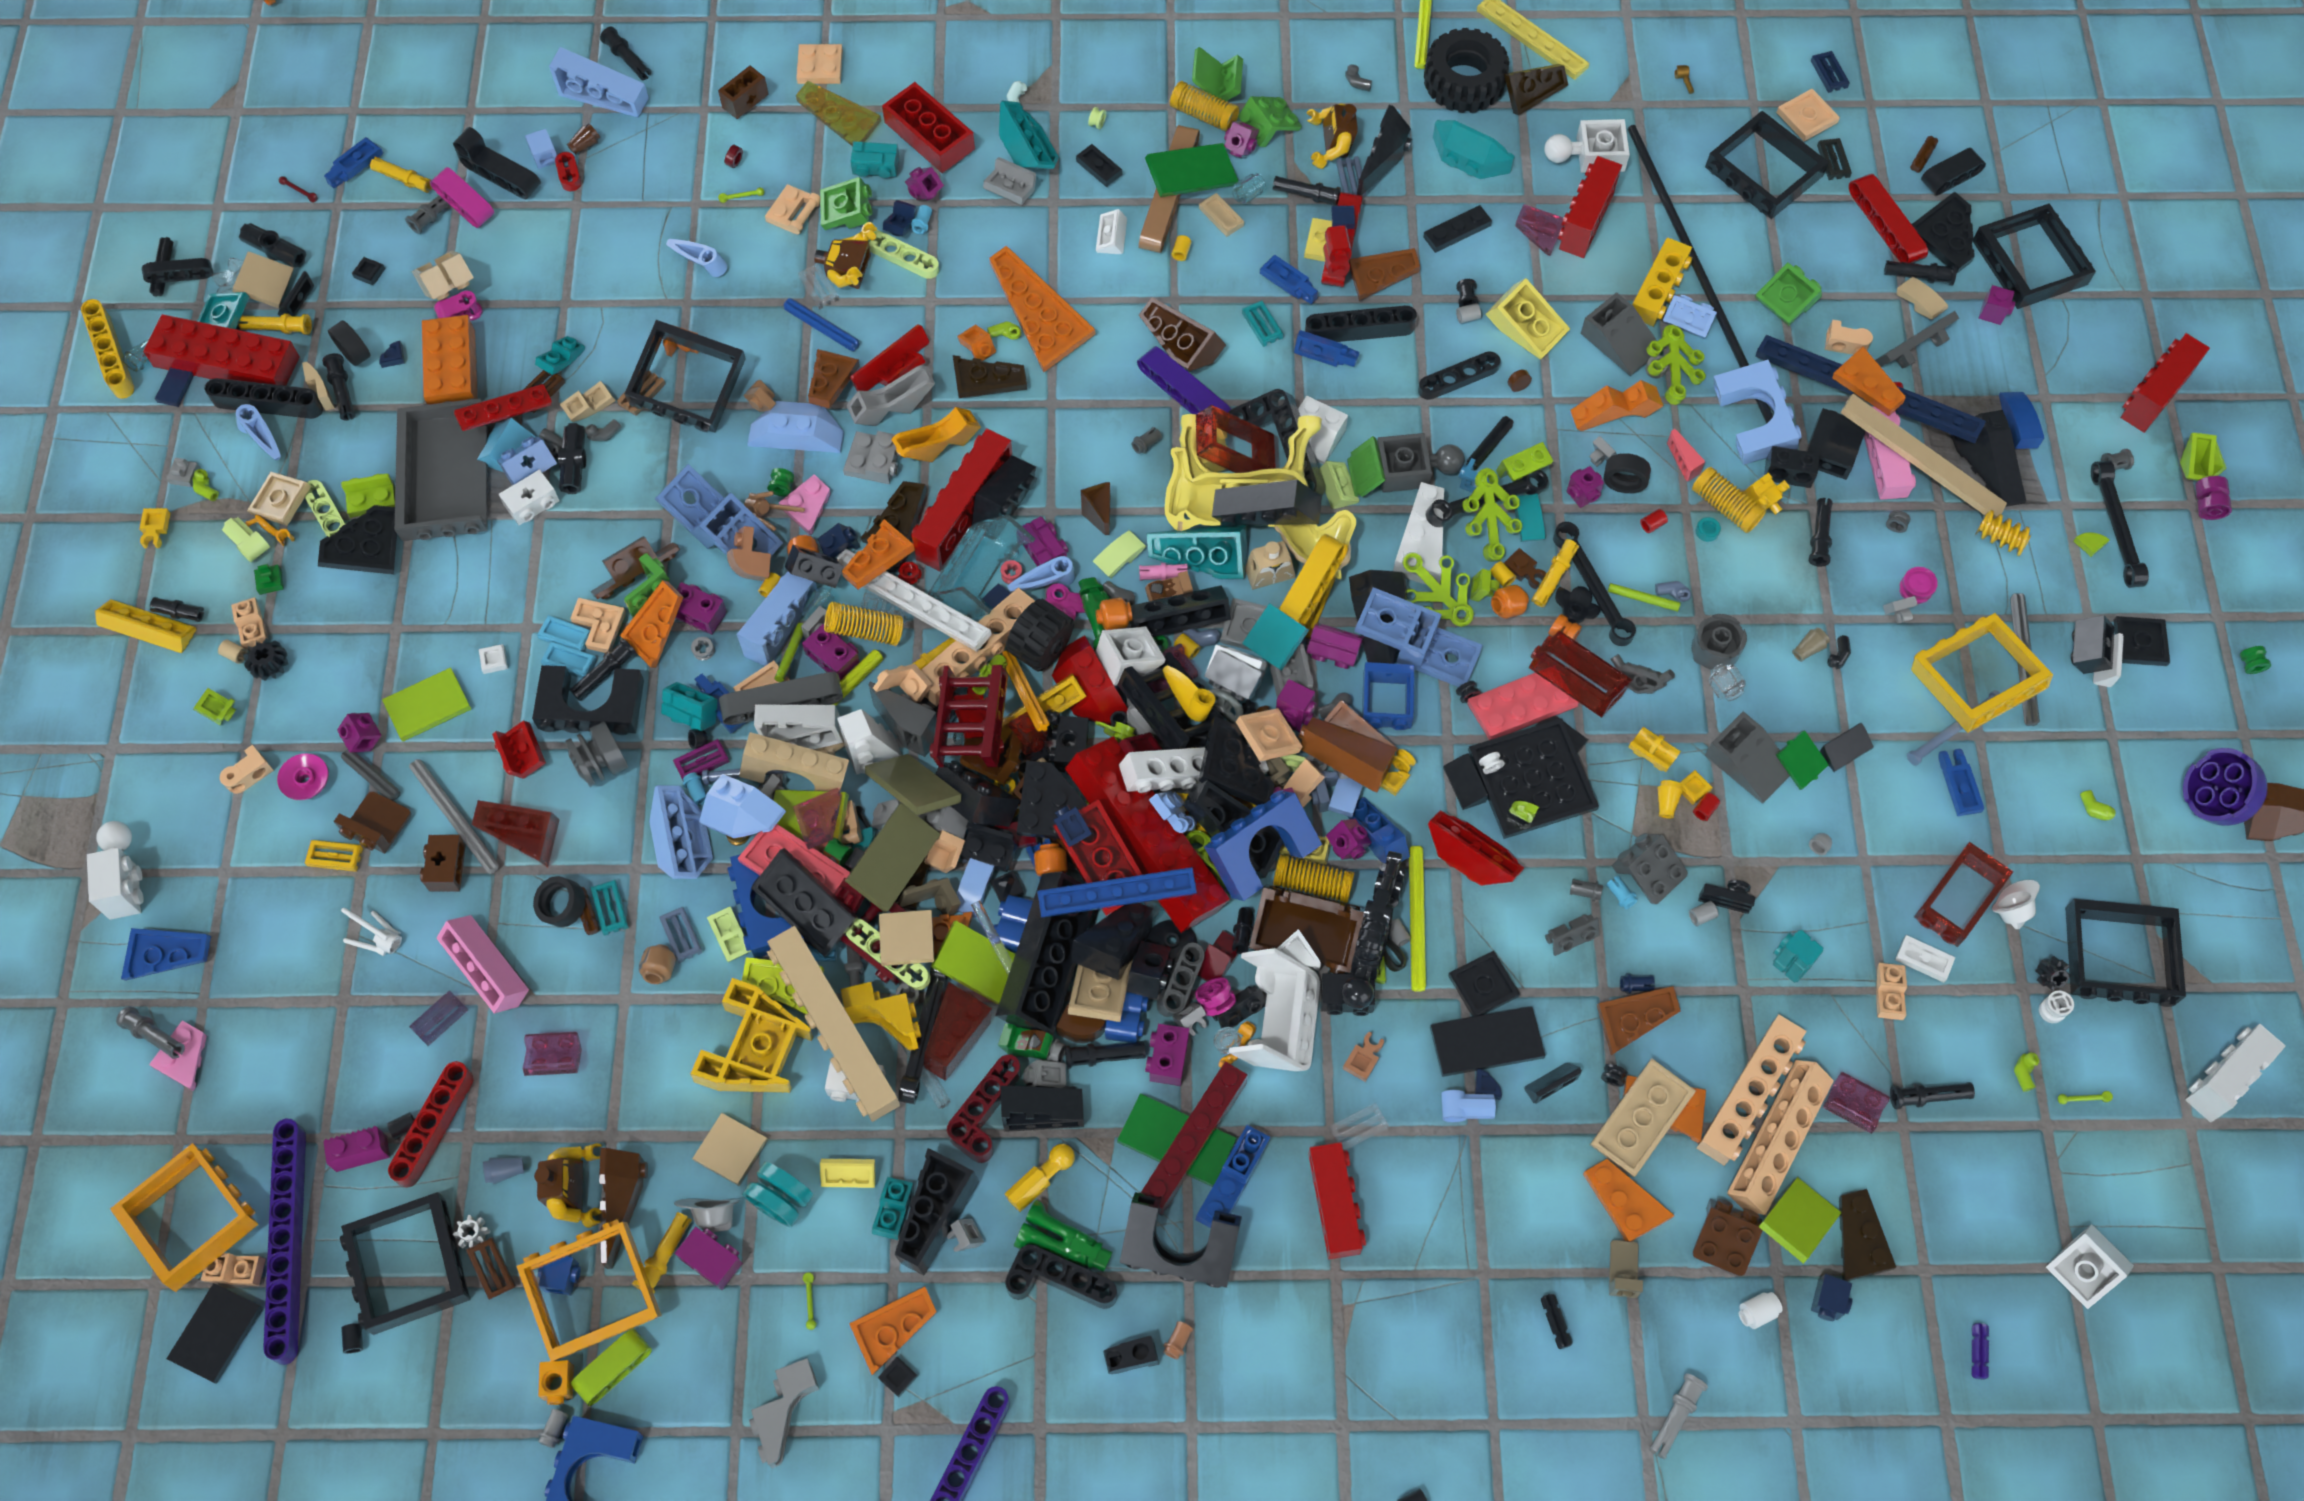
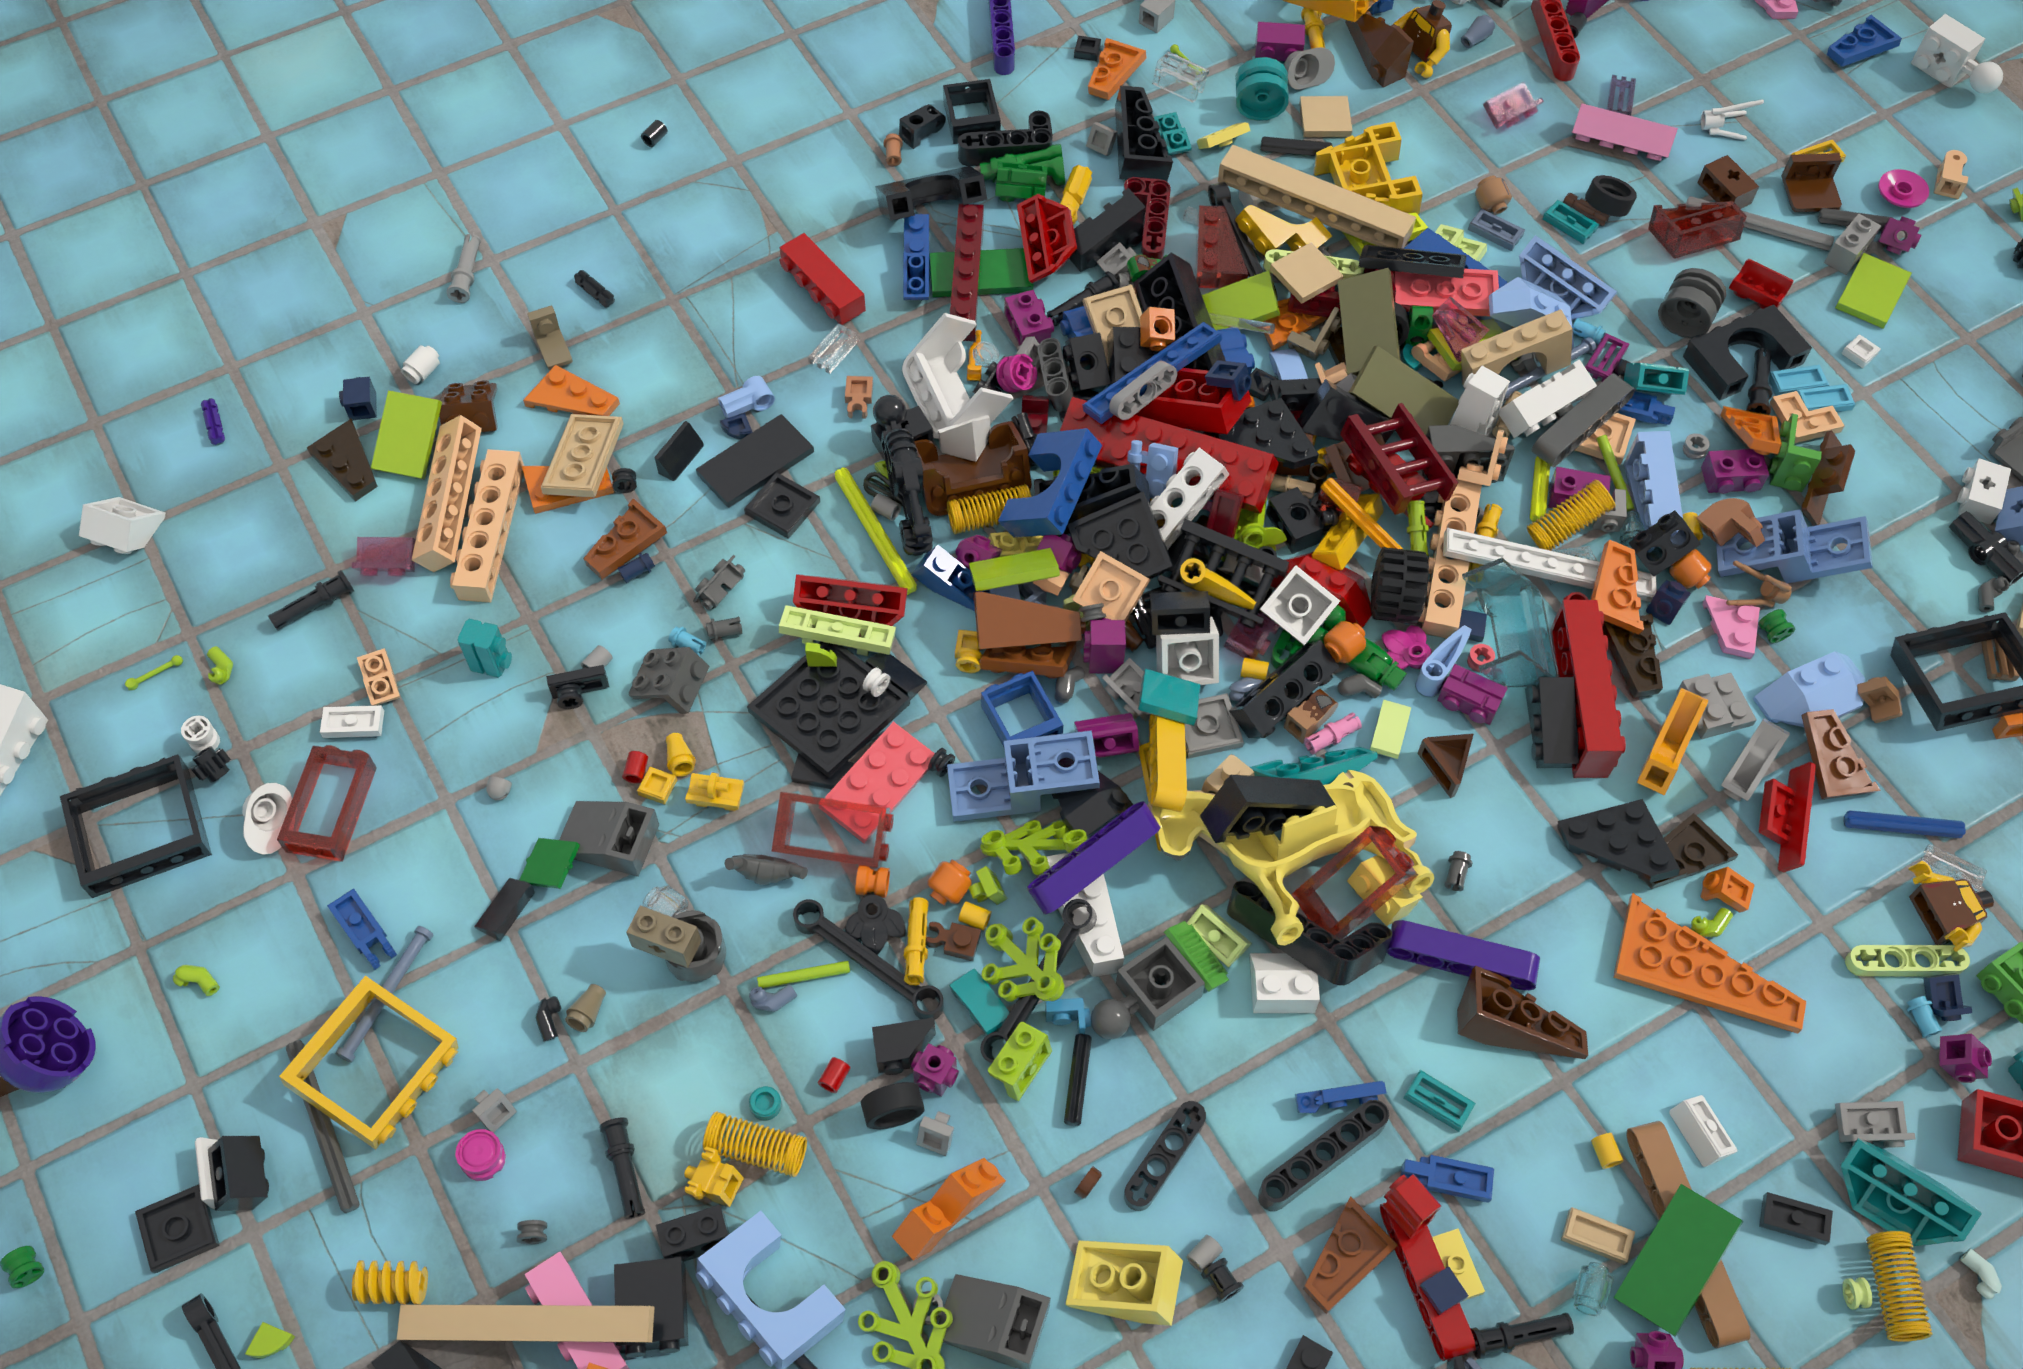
camera: 150 degrees right, 5 degrees down
(404, 746) = (1852, 244): none -> light grey brick
(786, 1126) = (1292, 146): none -> black axle
(835, 1272) = (1180, 76): none -> clear hinge
(1022, 400) = (1621, 839): none -> black plate
(1081, 93) = (1902, 1330): none -> yellow piece
(1081, 1215) = (1019, 181): none -> green brick
(1081, 1317) = (977, 92): none -> black window
(1085, 930) = (1163, 320): none -> orange brick
(1105, 1119) = (1046, 235): none -> red wedge
(1142, 868) = (1129, 402): none -> light grey beam
(1302, 718) = (1092, 612): none -> dark grey bush
(1336, 789) = (1014, 569): none -> lime tile
(1400, 531) = (1093, 857): none -> dark purple beam
(1498, 829) = (837, 630): none -> yellowish green hinge
(1598, 515) = (900, 1042): none -> black slope
(1685, 456) = (829, 1179): coral slope -> none
(1744, 633) = (664, 936): none -> dark tan brick

